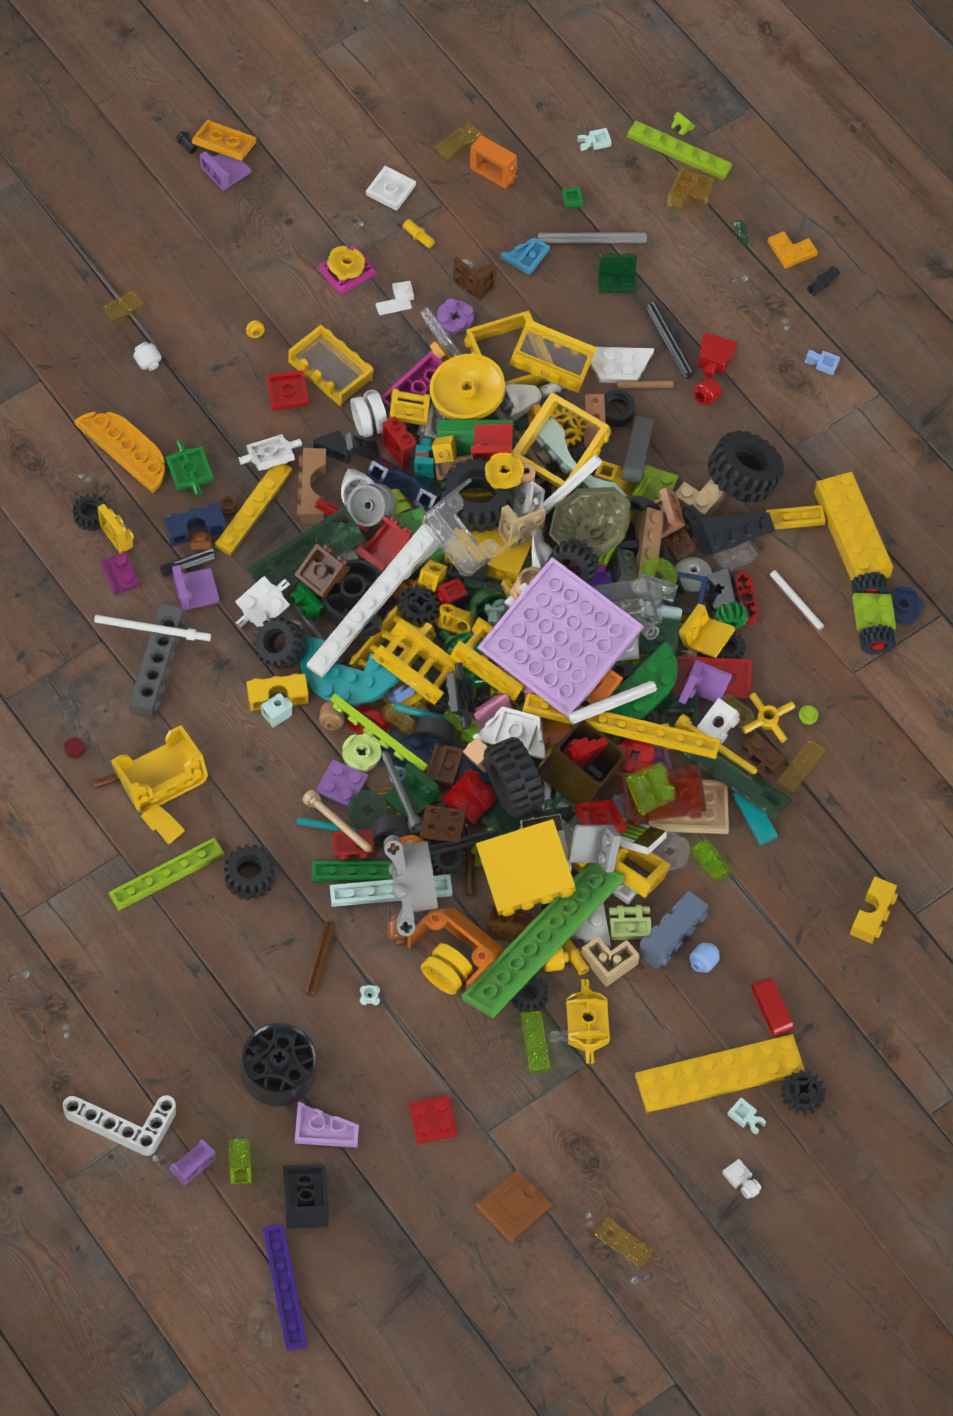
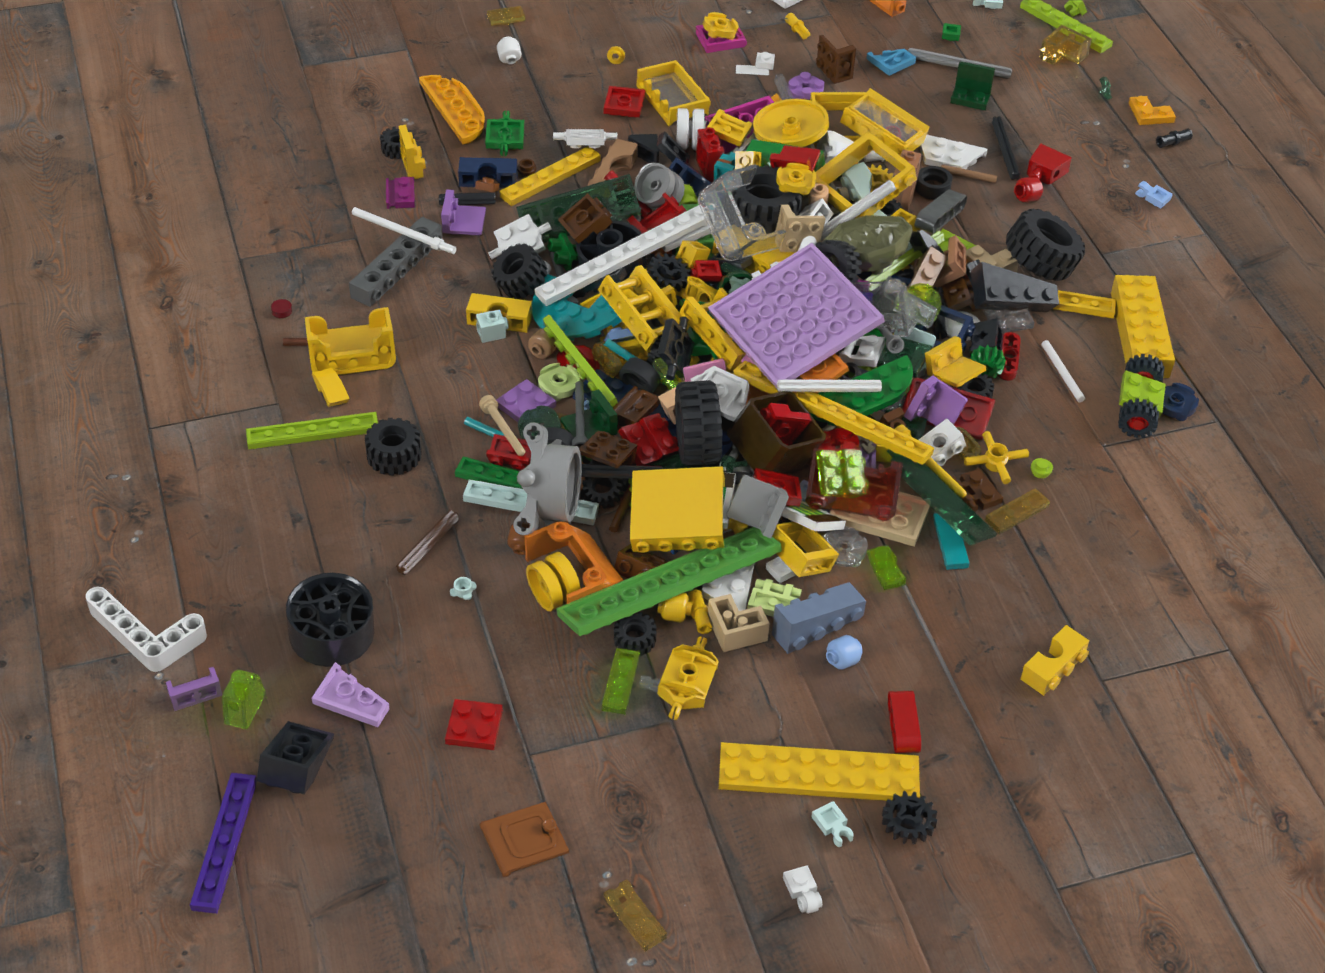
camera: 20 degrees right, 15 degrees down
(670, 710) = (893, 418): none -> reddish brown tile

